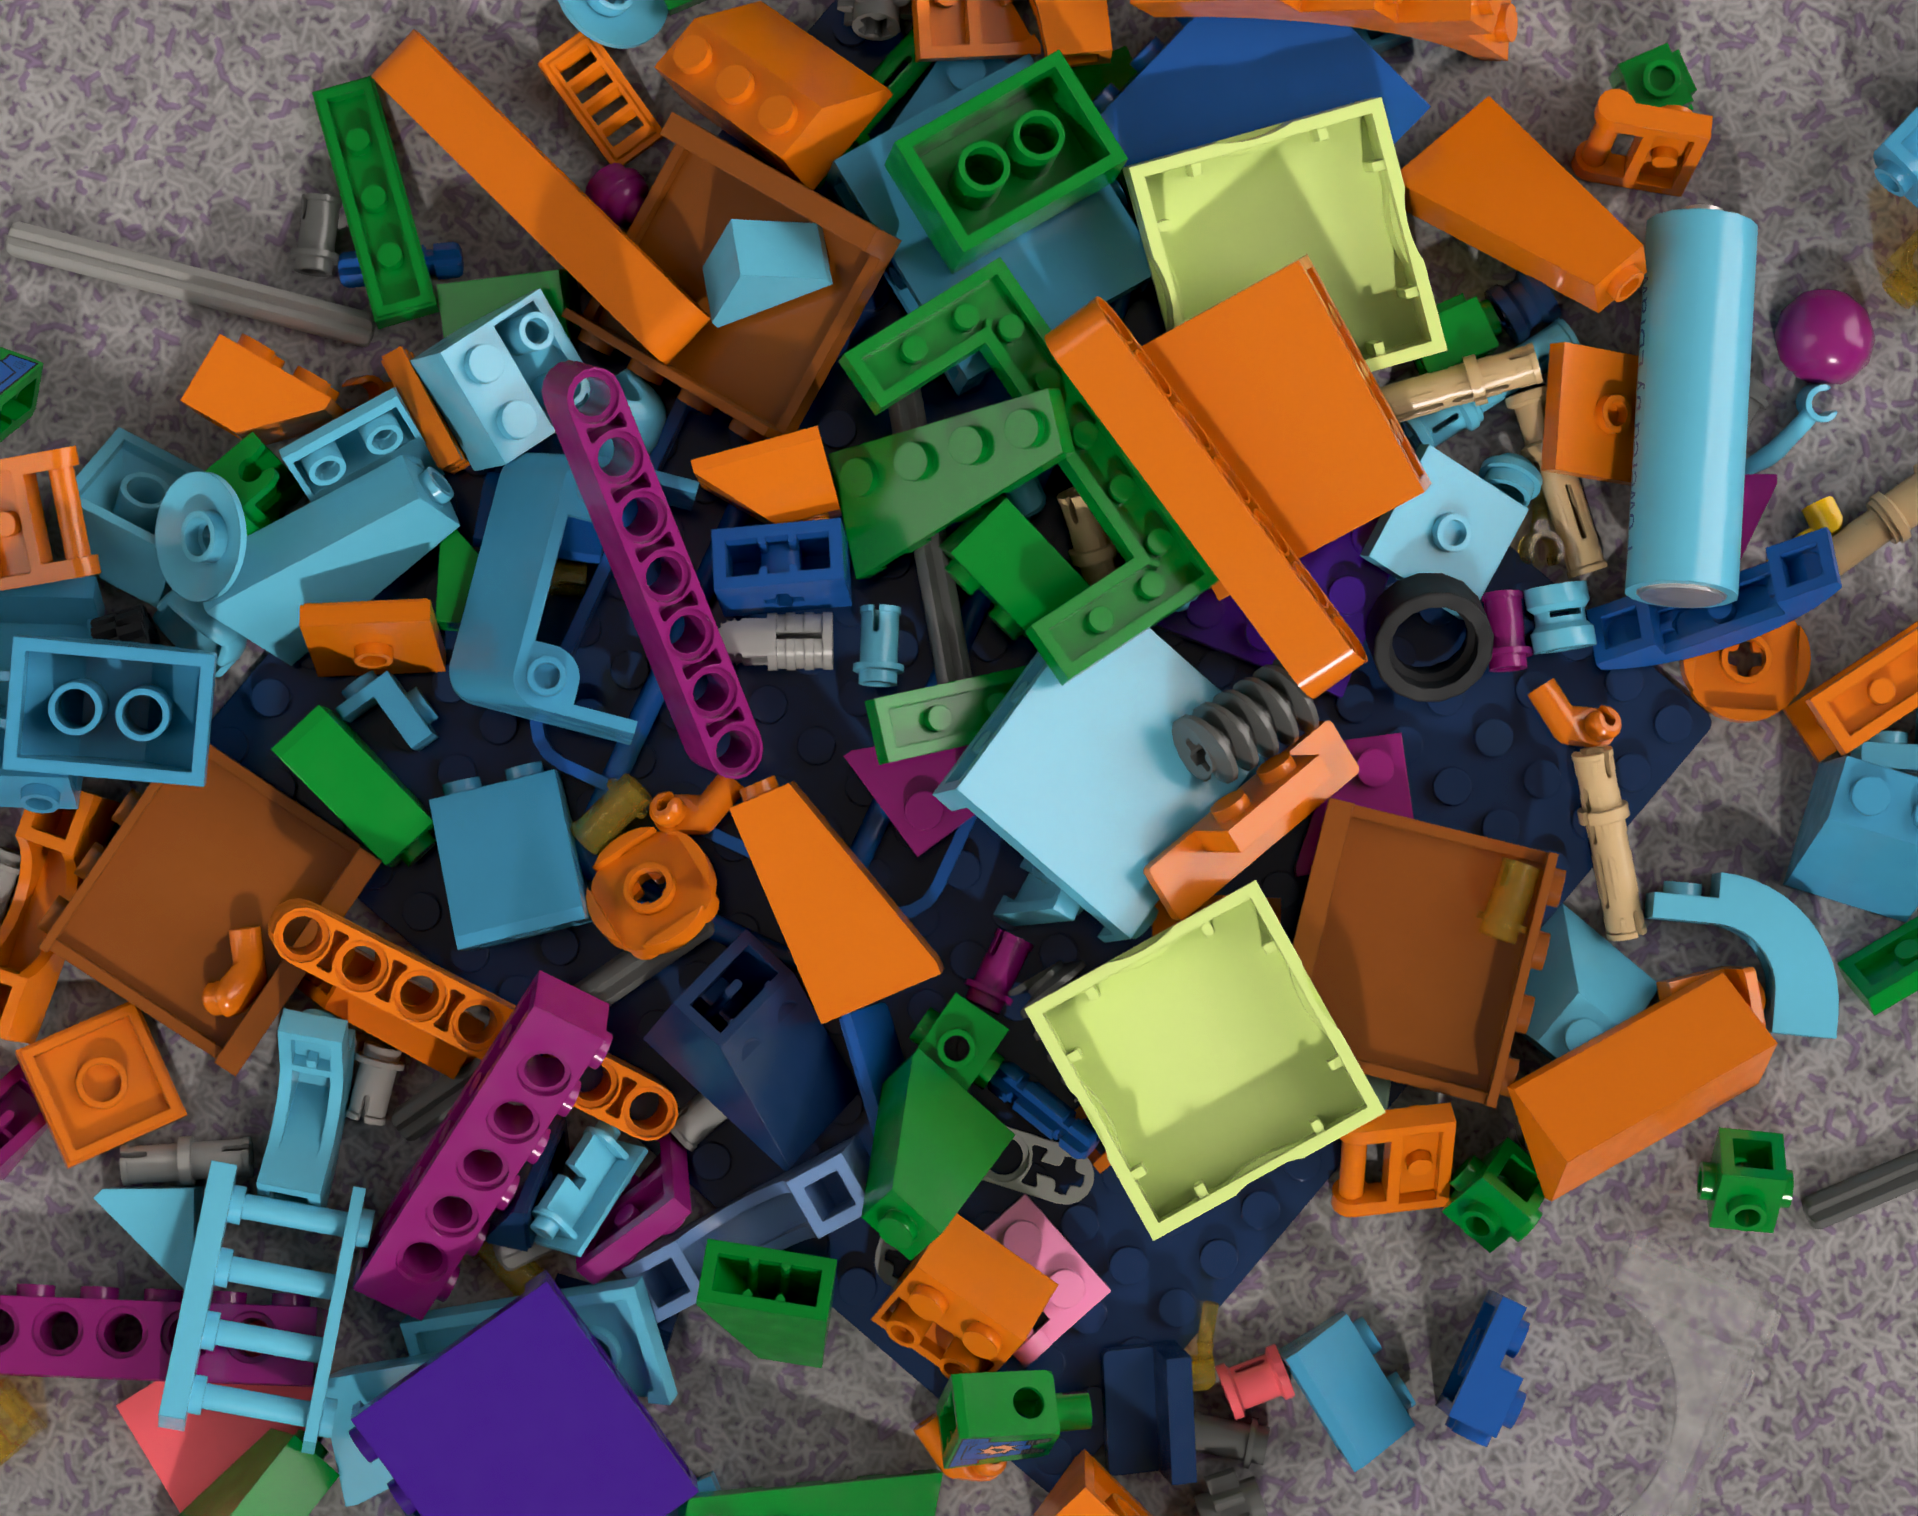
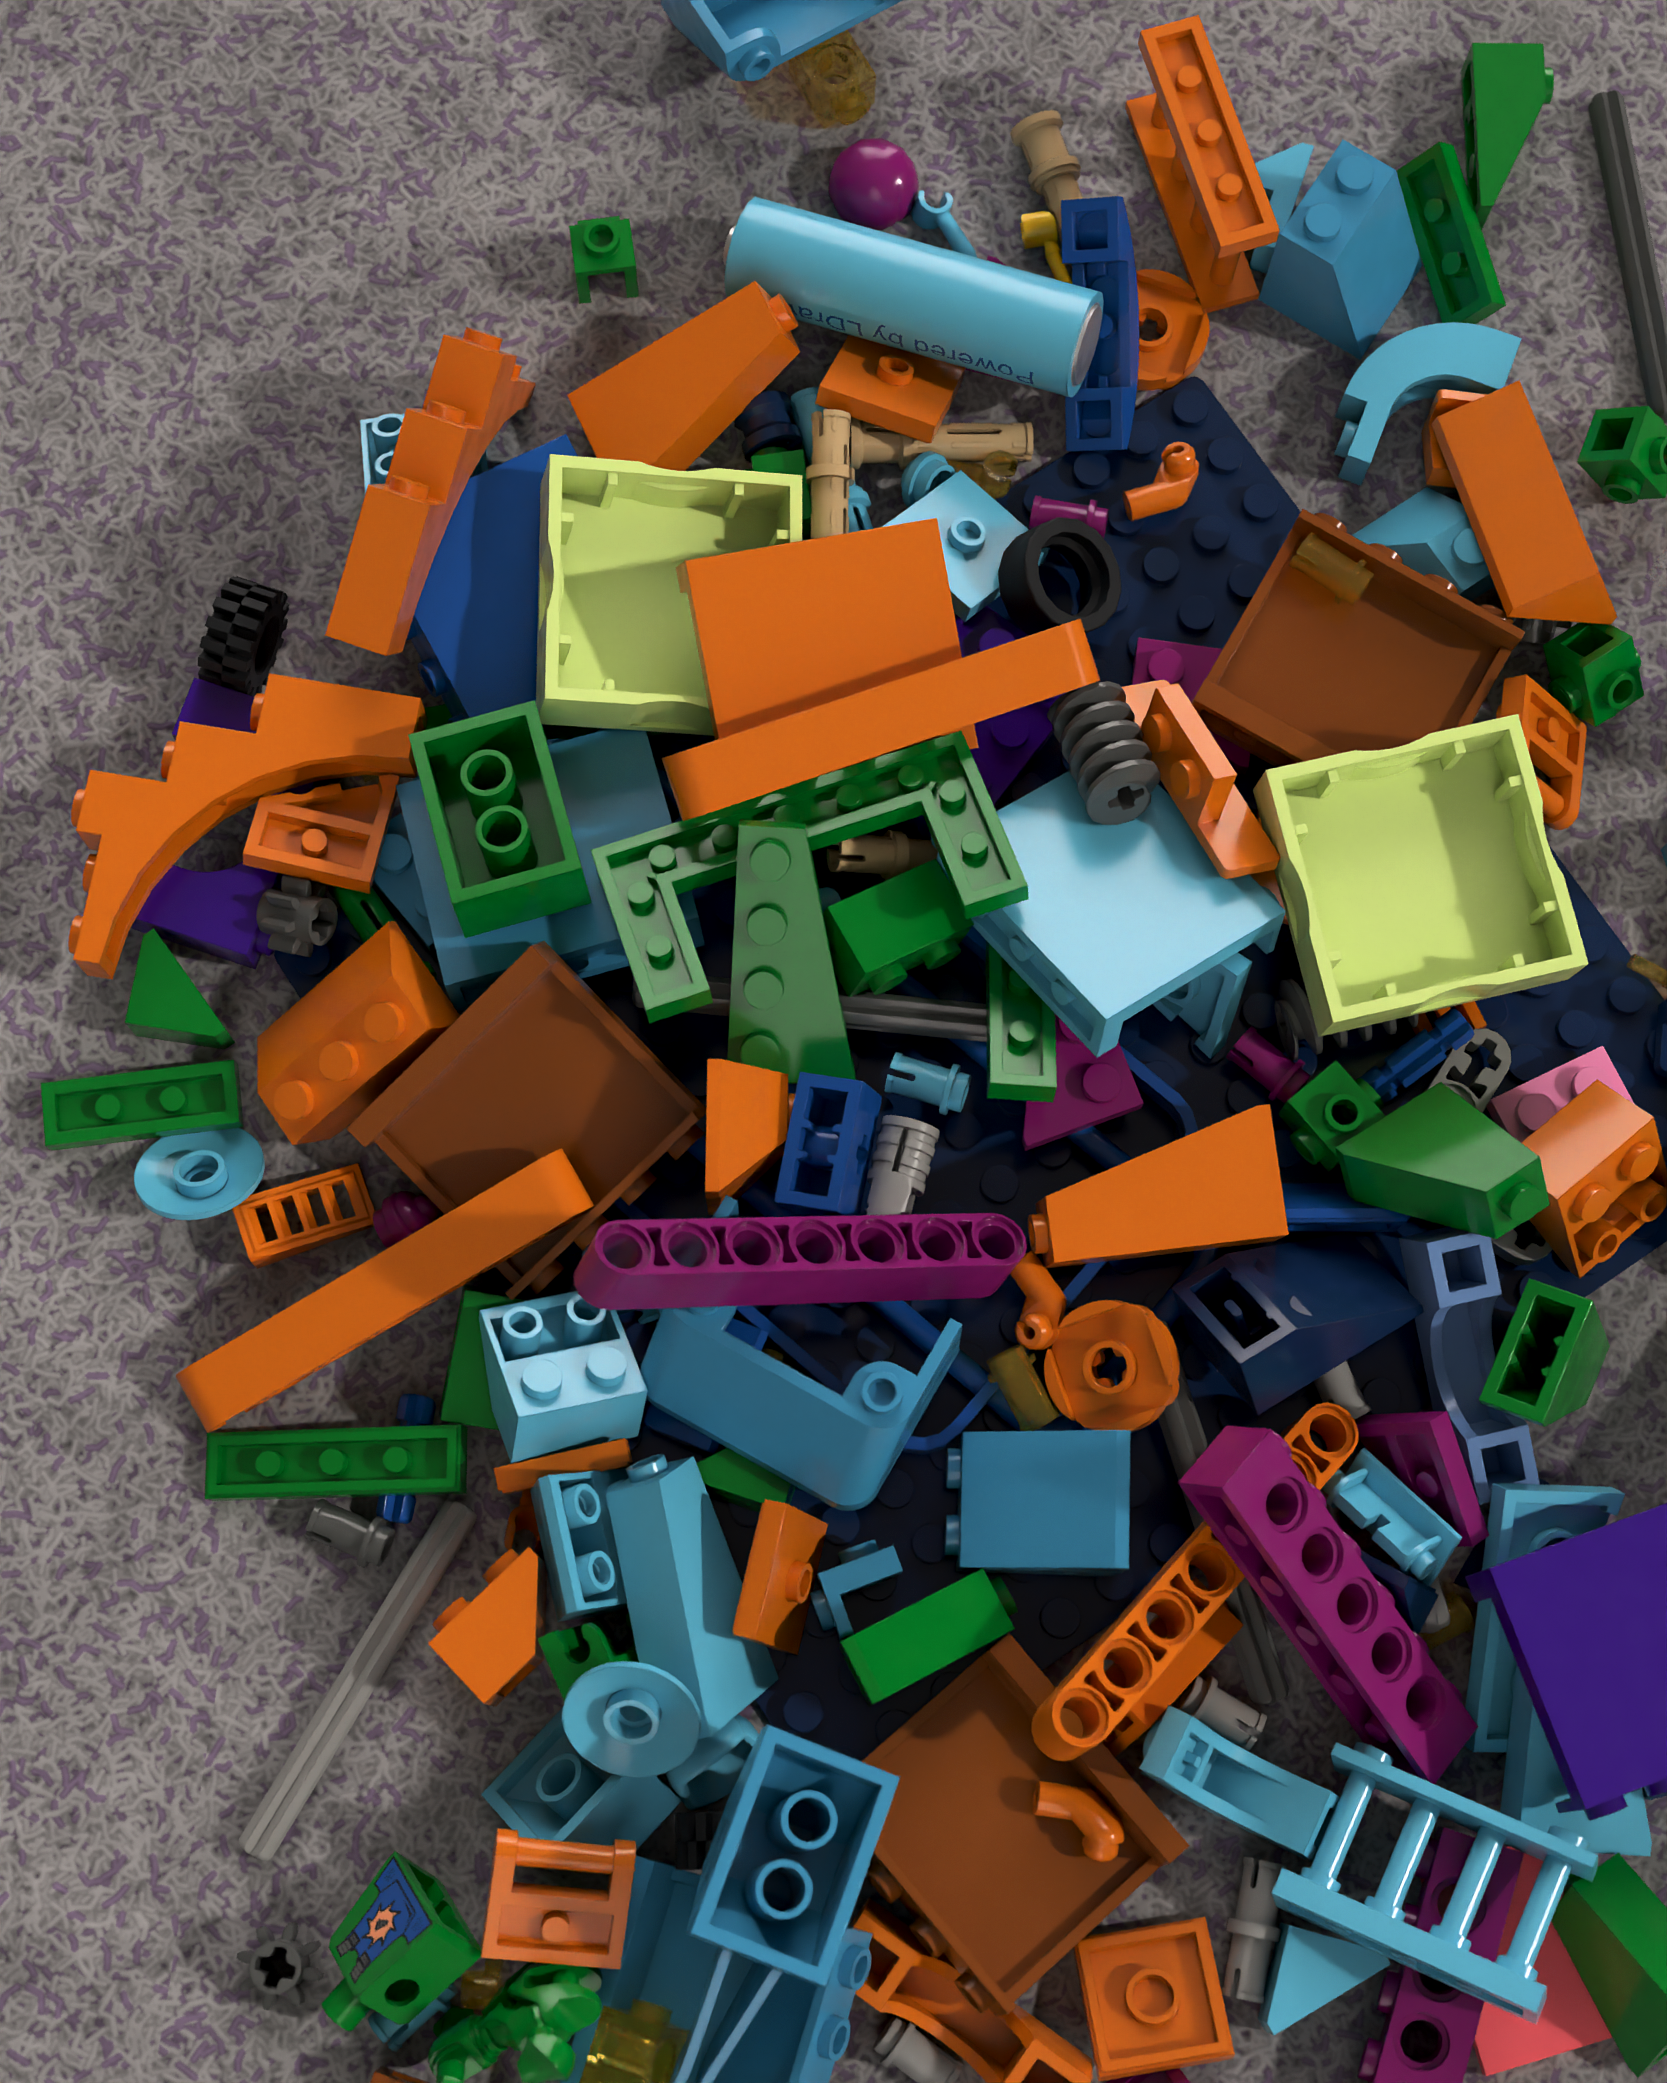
camera: 80 degrees left, 10 degrees down
(763, 266) = (529, 1082): medium azure slope -> none
(1564, 631) = (1085, 469): medium azure wheel -> none
(1606, 827) = (1267, 483): tan pin -> none
(1661, 155) = (668, 261): orange plate -> none

